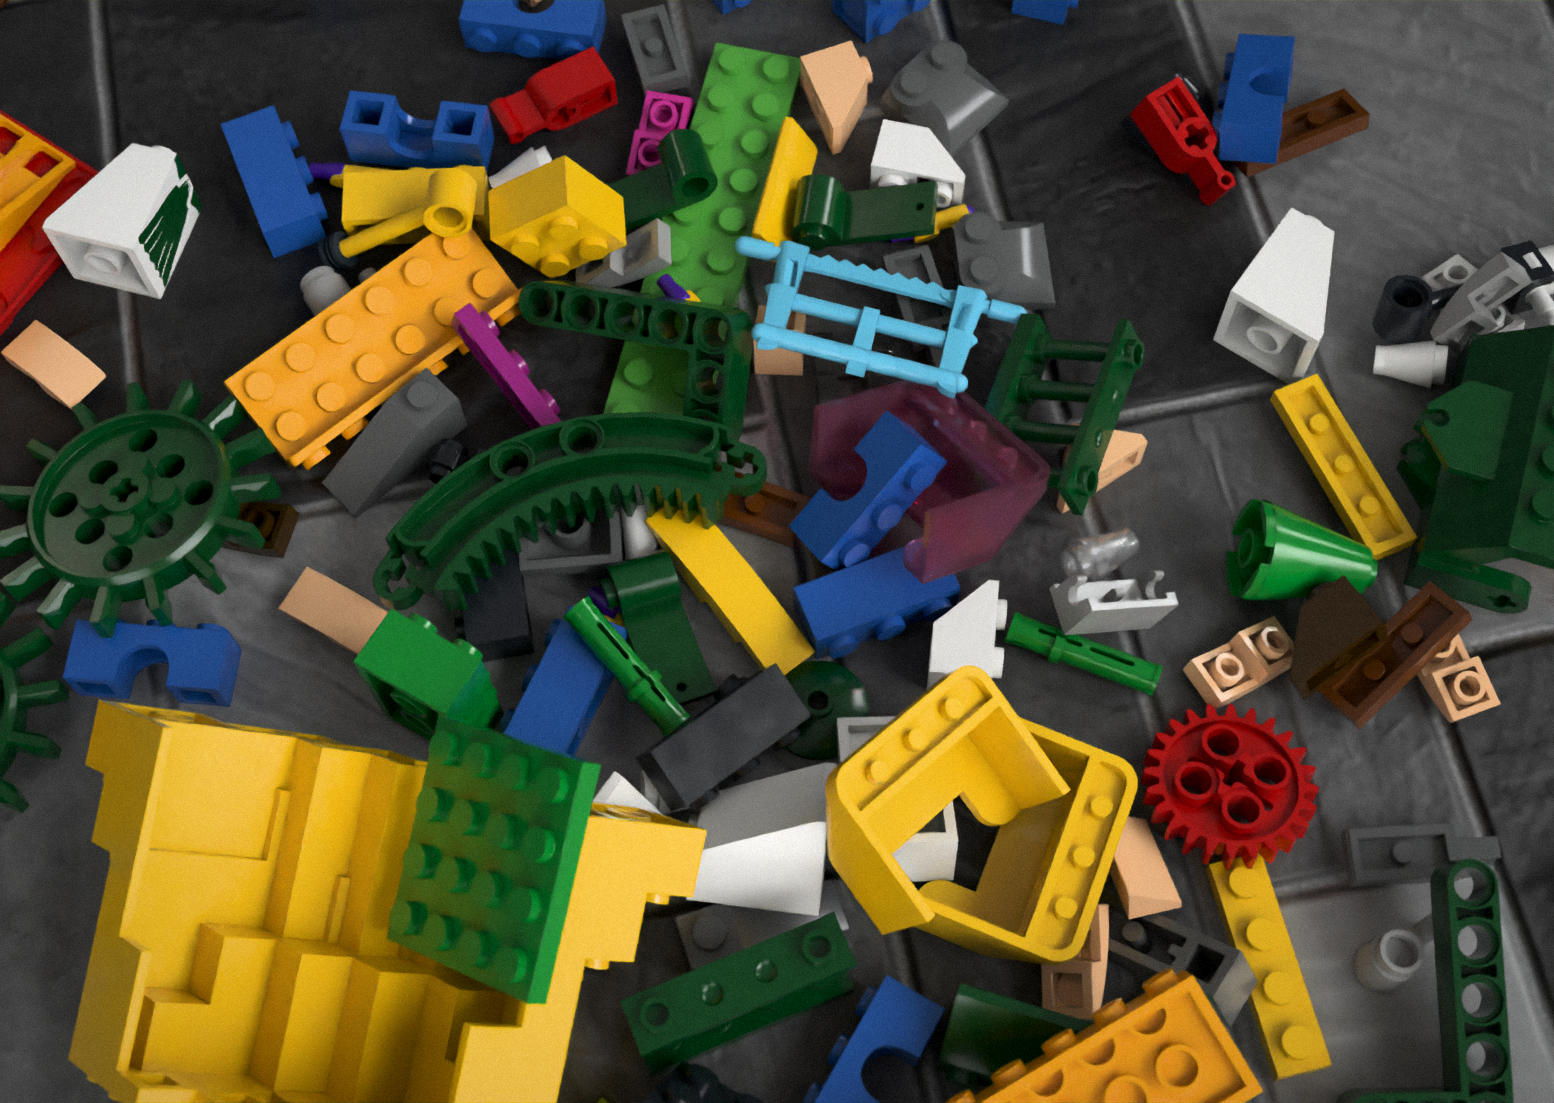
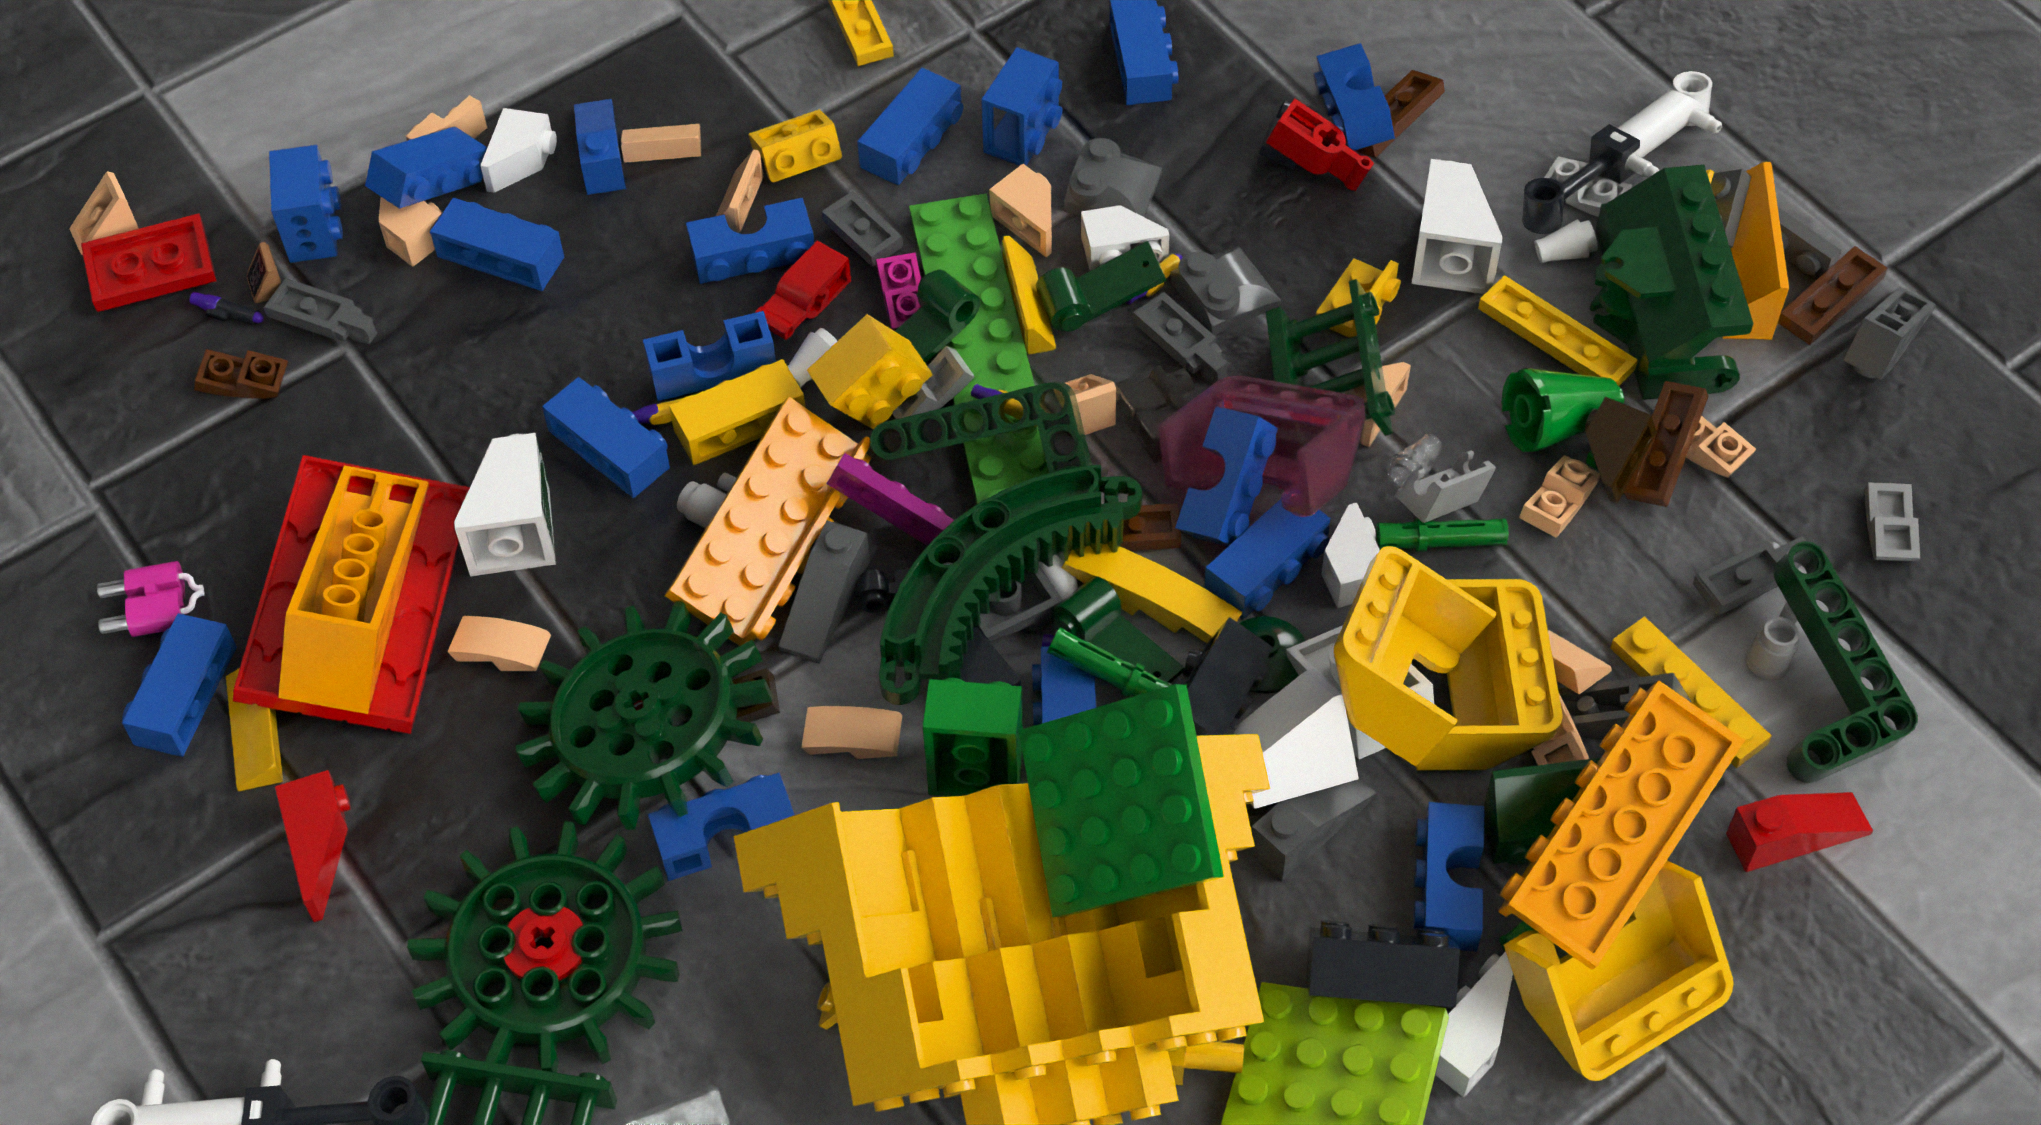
camera: 25 degrees left, 10 degrees down
(444, 211) = (781, 392): yellow piece -> none
(740, 994) = (1331, 857): dark green fence -> none
(783, 298) = (1086, 366): medium azure piece -> none
(1156, 323) = (1381, 283): none -> yellow bracket
(1205, 817) = (1599, 579): red gear -> none
(1471, 305) = (1591, 180): light grey slope -> none

